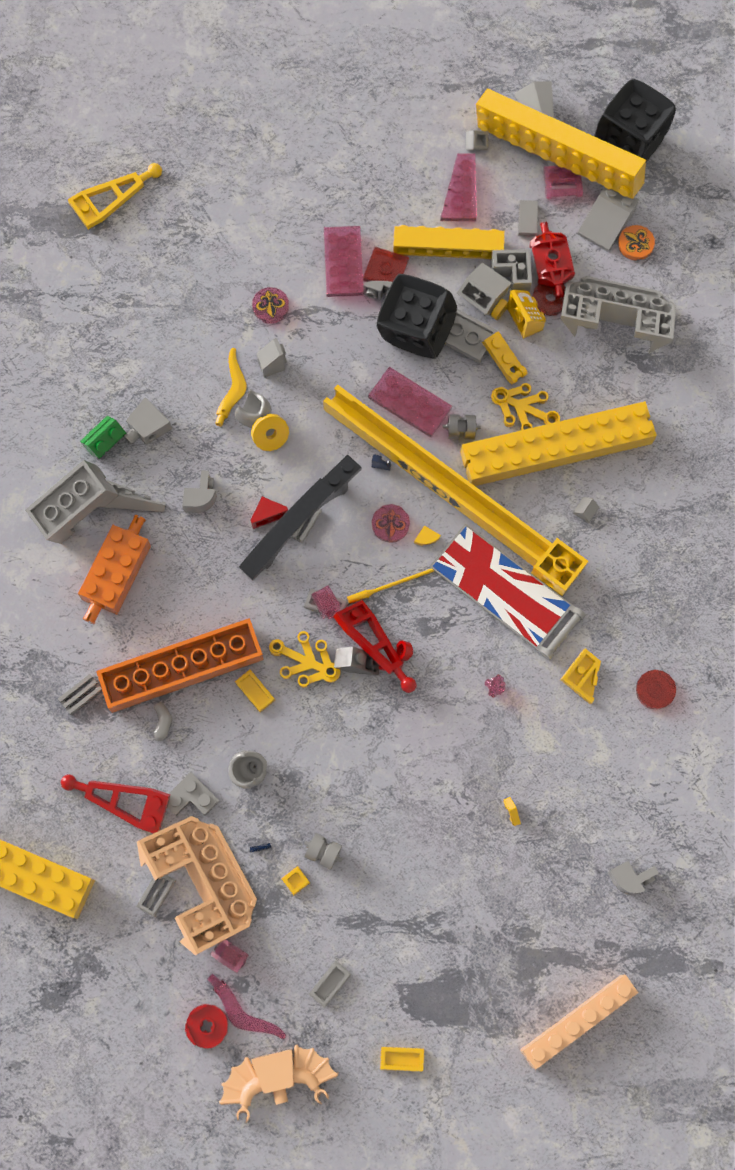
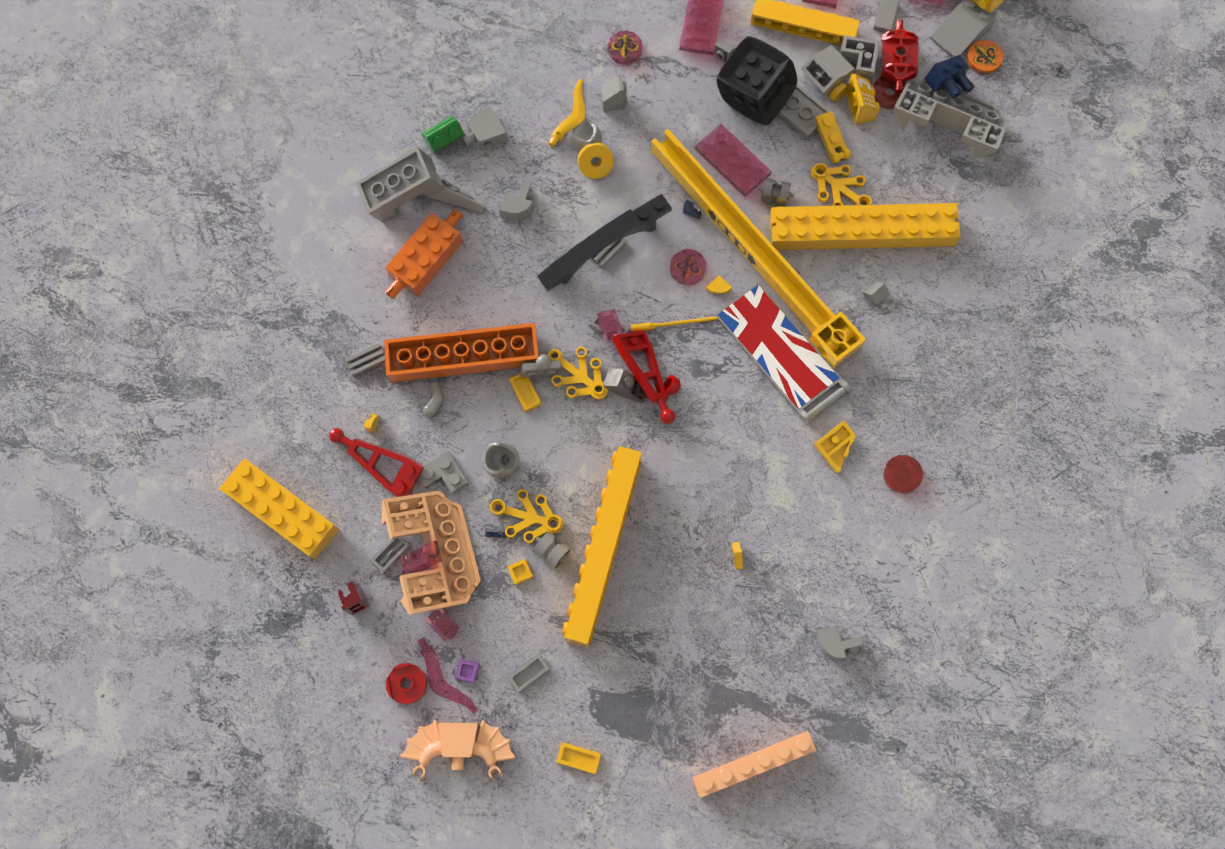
camera: 20 degrees right, 0 degrees up
(102, 761) = (370, 425): none -> yellow tile
(132, 954) = (355, 600): none -> dark red hinge
(191, 891) = (422, 558): none -> clear pink hinge
(266, 997) = (467, 671): none -> medium lavender tile
(267, 512) = (574, 232): red slope -> none
(268, 661) = (543, 366): none -> light grey plate
(292, 821) = (529, 517): none -> yellow plant
(376, 836) = (603, 547): none -> yellow piece
(385, 265) = (738, 29): clear red tile -> none
(495, 685) = (750, 436): clear pink plant -> none
(604, 268) = (947, 74): none -> dark blue brick

